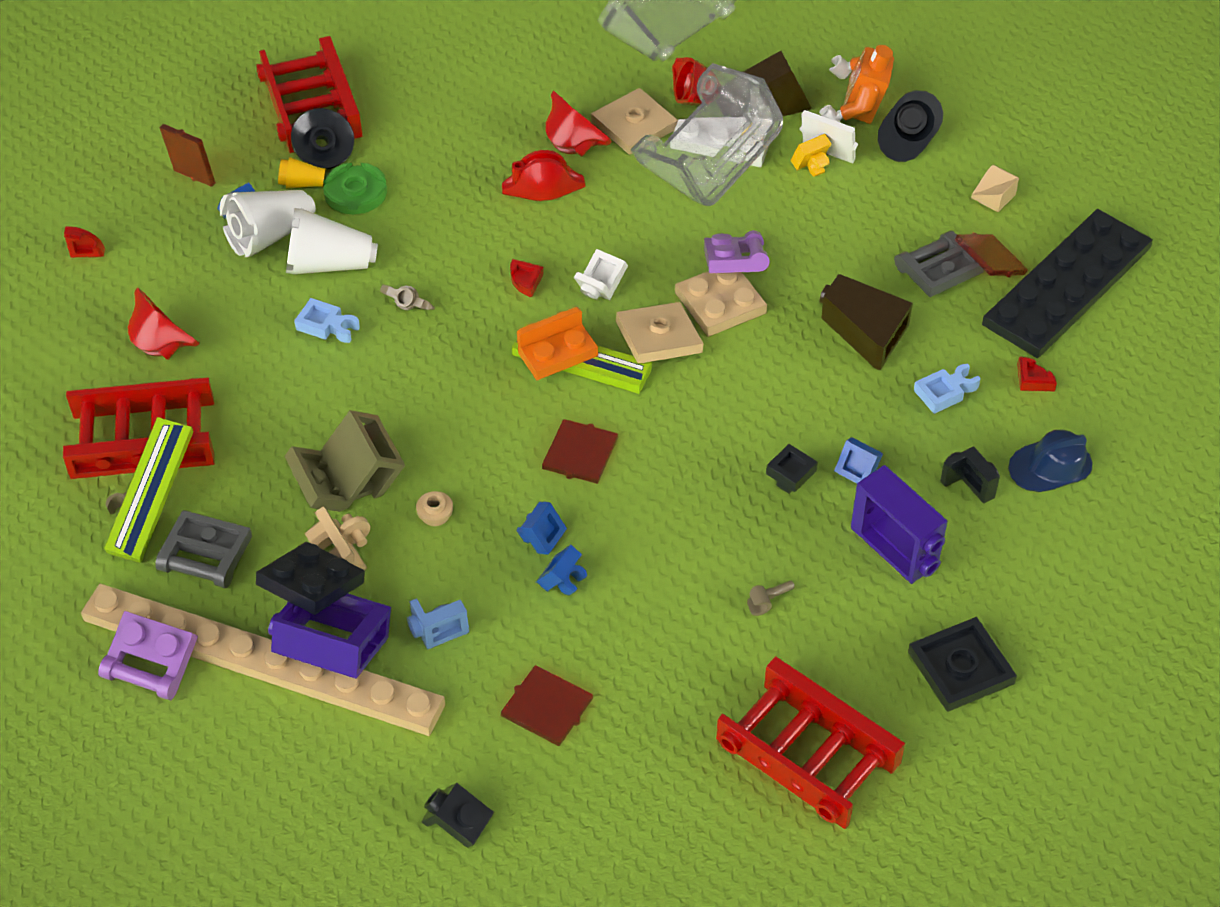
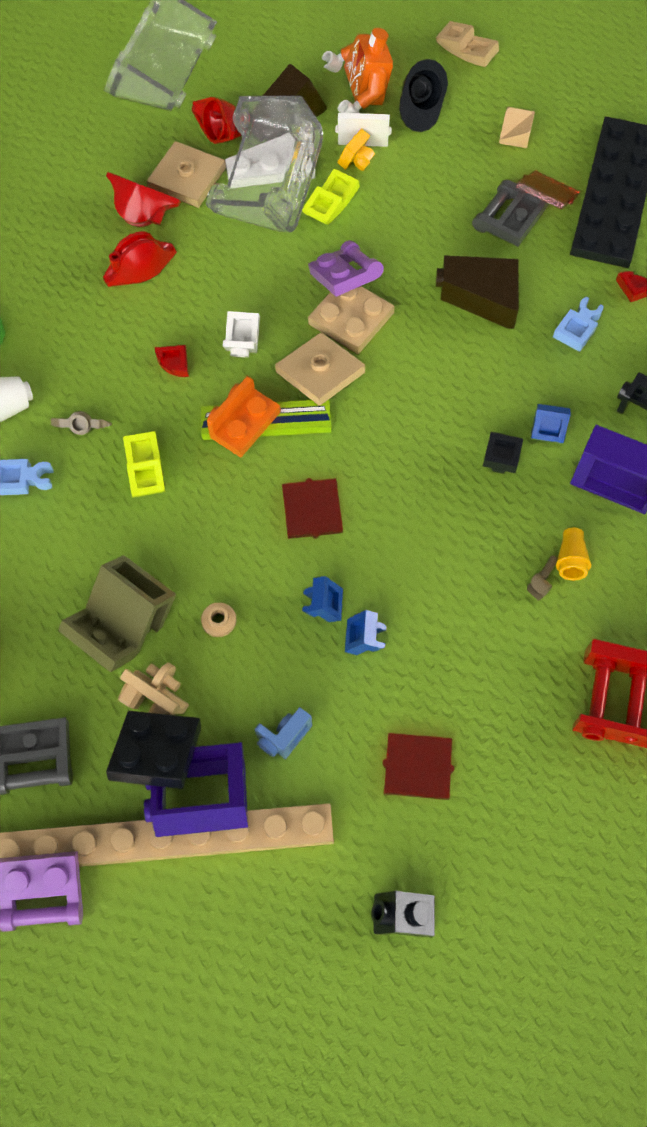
camera: 25 degrees left, 15 degrees up
(445, 353) = (144, 464): none -> neon yellow slope
(762, 191) = (332, 198): none -> neon yellow slope
(807, 588) = (573, 556): none -> yellow cone
(991, 95) = (461, 42): none -> tan slope

